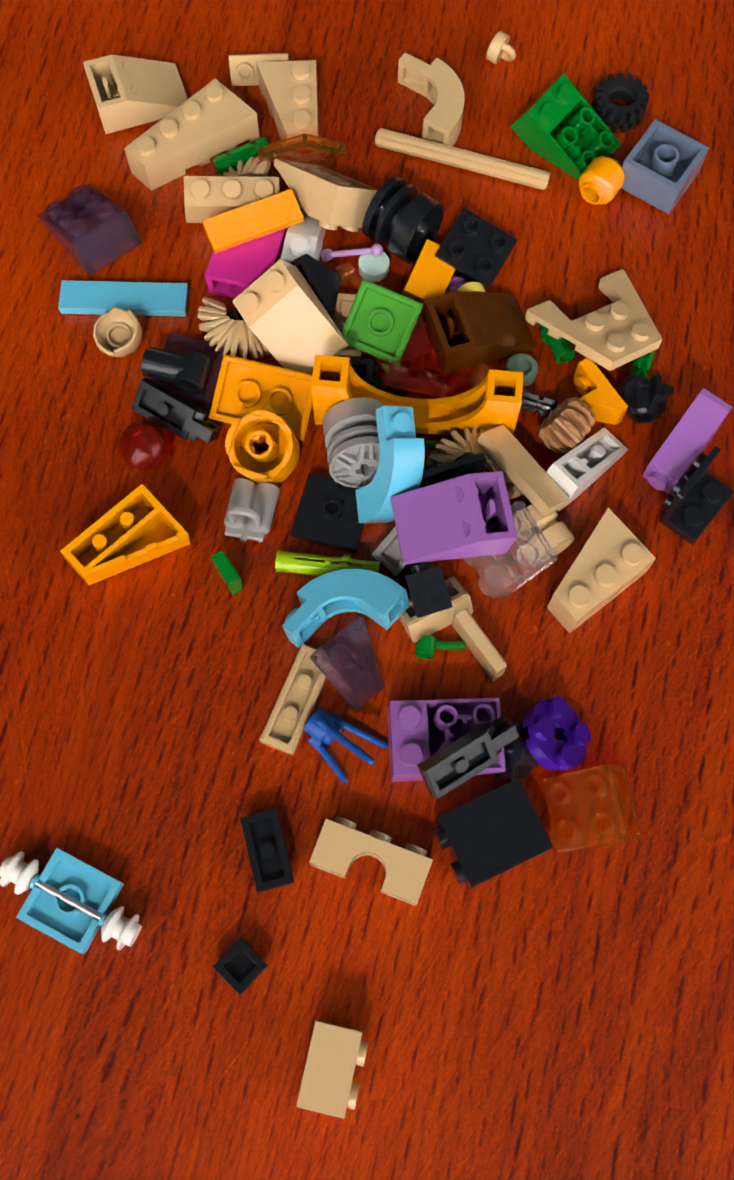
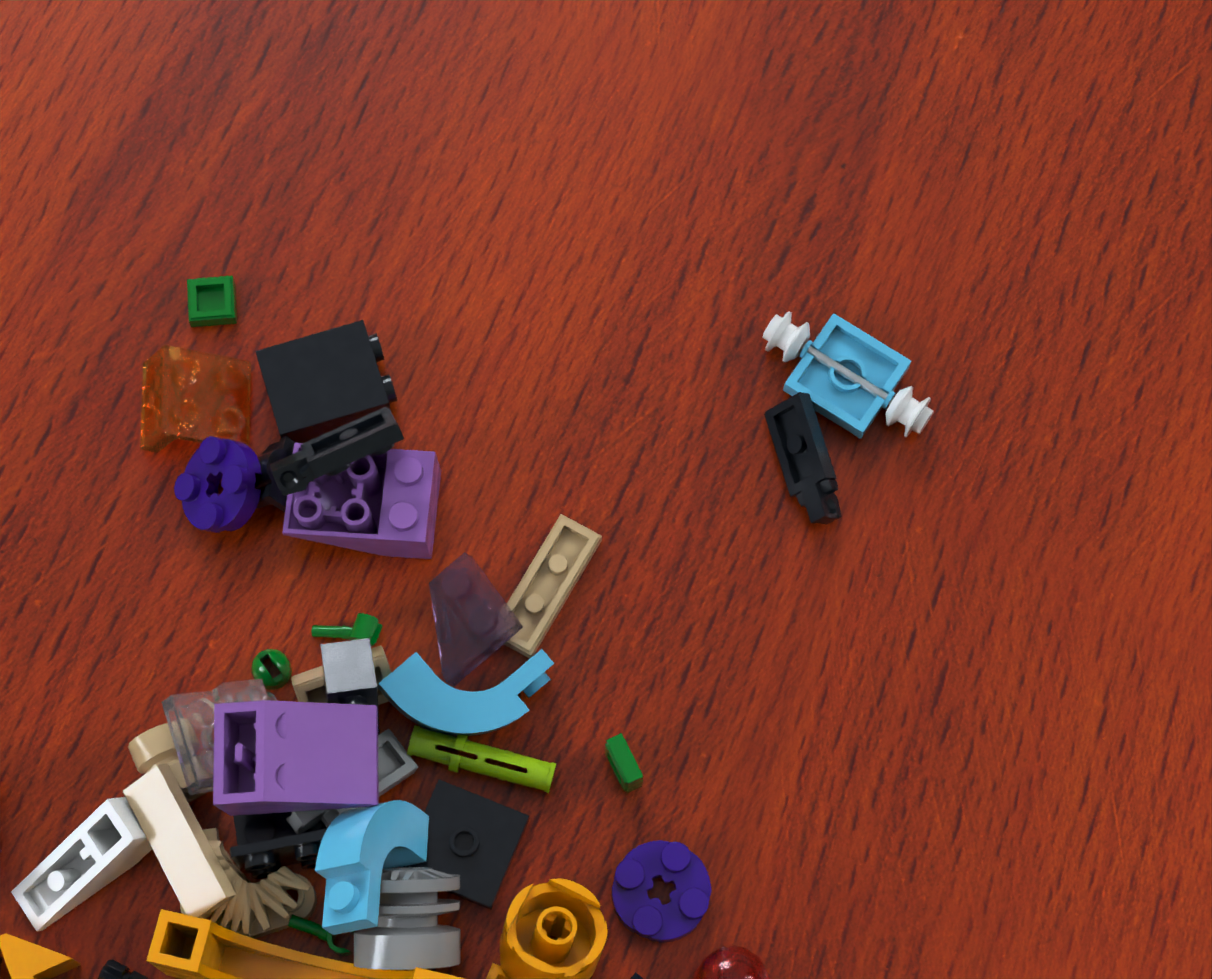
camera: 175 degrees left, 0 degrees up
(104, 823) = (804, 457): none -> black hinge
(125, 537) = (763, 826): light orange wedge -> none
(196, 480) = (648, 916): none -> dark purple plate
(240, 966) = (648, 282): black plate -> none
(250, 510) = (585, 852): light grey piece -> none
(267, 850) = (604, 402): black plate -> none
(328, 728) = (515, 535): blue plant -> none
(330, 1069) = (555, 164): tan brick -> none
(342, 844) = (510, 394): tan arch -> none
(479, 645) = (292, 619): tan tile -> none
(483, 616) = (280, 661): none -> green hinge
(566, 425) = (95, 920): medium nougat gear -> none
(600, 902) = (211, 301): none -> green tile
(601, 571) = (106, 695): tan wedge -> none

